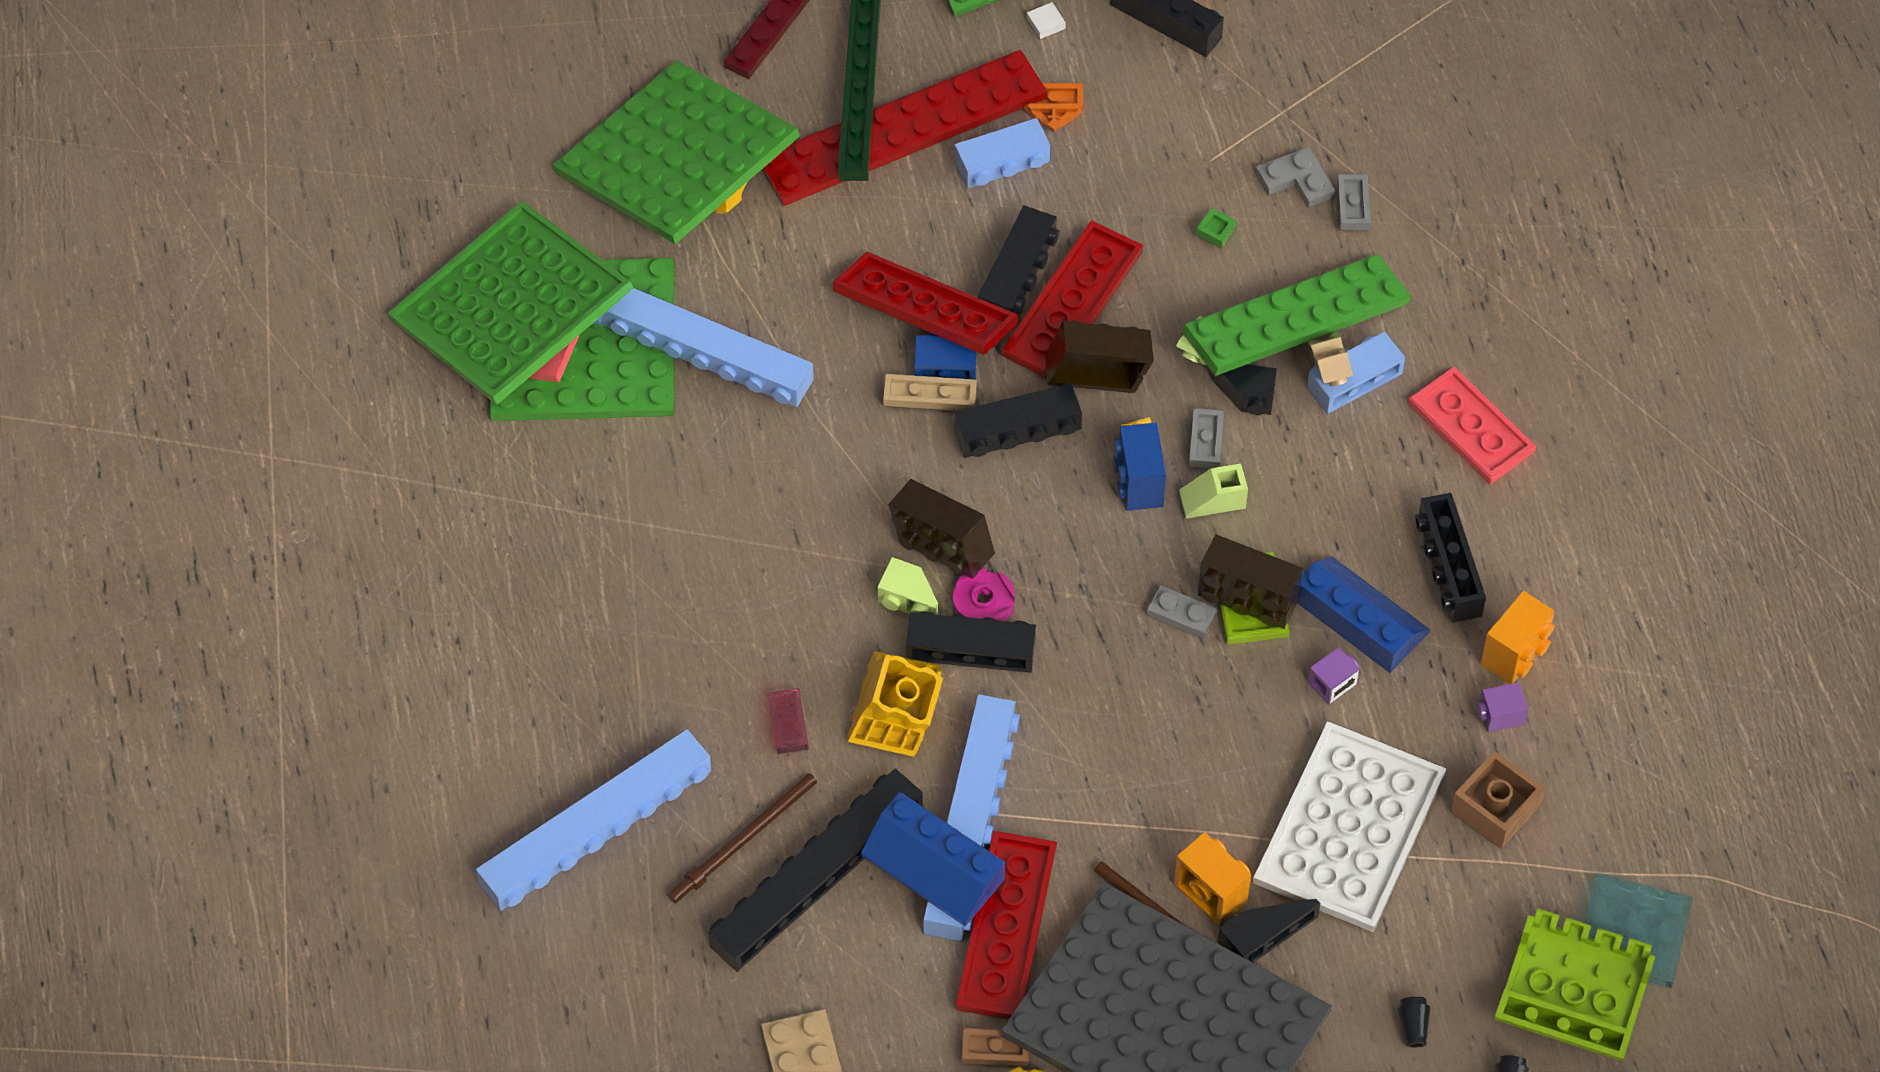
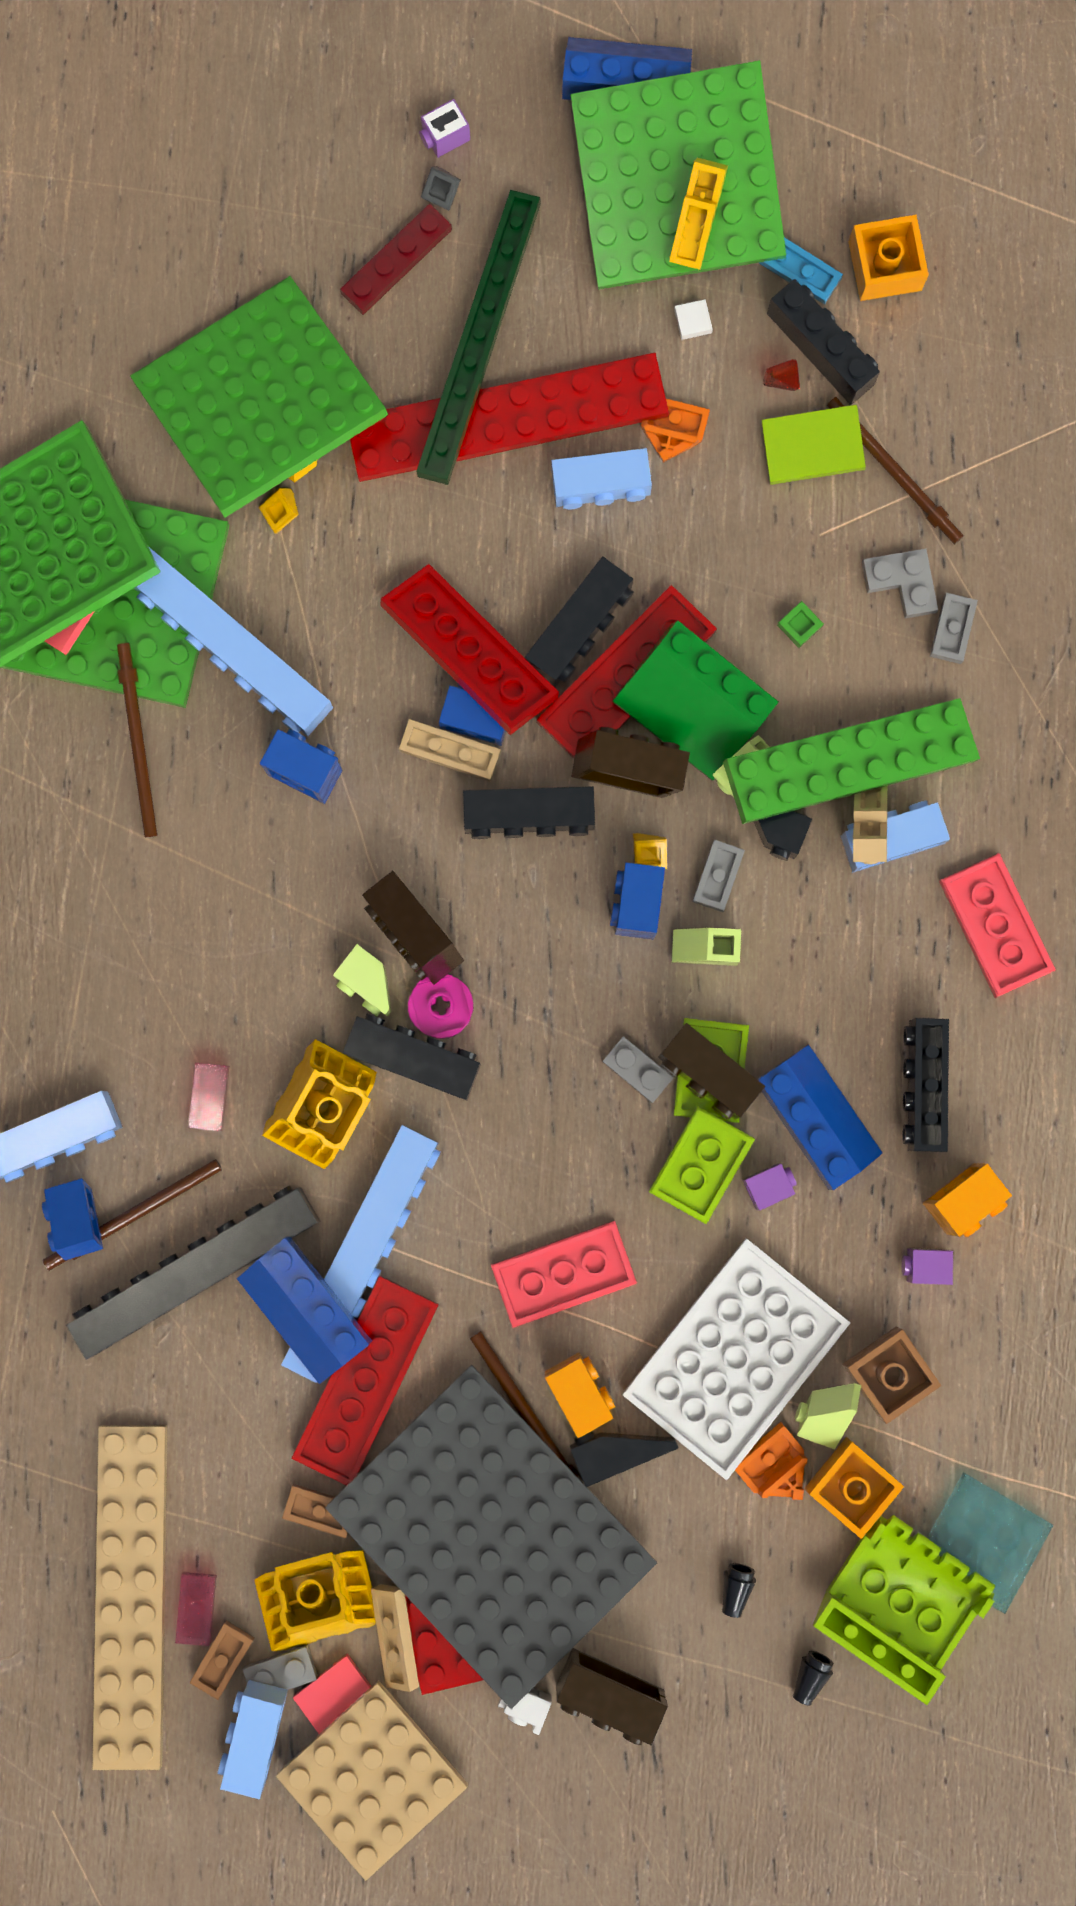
camera: 15 degrees right, 25 degrees up
(619, 394) = (128, 677): none -> reddish brown bar
(688, 845) = (72, 1219): none -> blue brick
(717, 240) = (279, 509): none -> yellow slope
(799, 427) = (302, 765): none -> blue brick
(1139, 44) = (783, 376): none -> clear red slope
(1141, 291) = (695, 699): none -> green slope
(1166, 796) = (563, 1274): none -> coral tile
(1183, 89) = (813, 444): none -> lime tile
(1266, 673) = (701, 1165): none -> lime tile
(1308, 120) = (936, 515): none -> reddish brown bar
(1415, 910) = (775, 1465): none -> orange slope
(1450, 844) = (828, 1414): none -> yellowish green slope
(1494, 901) = (854, 1487): none -> light orange brick

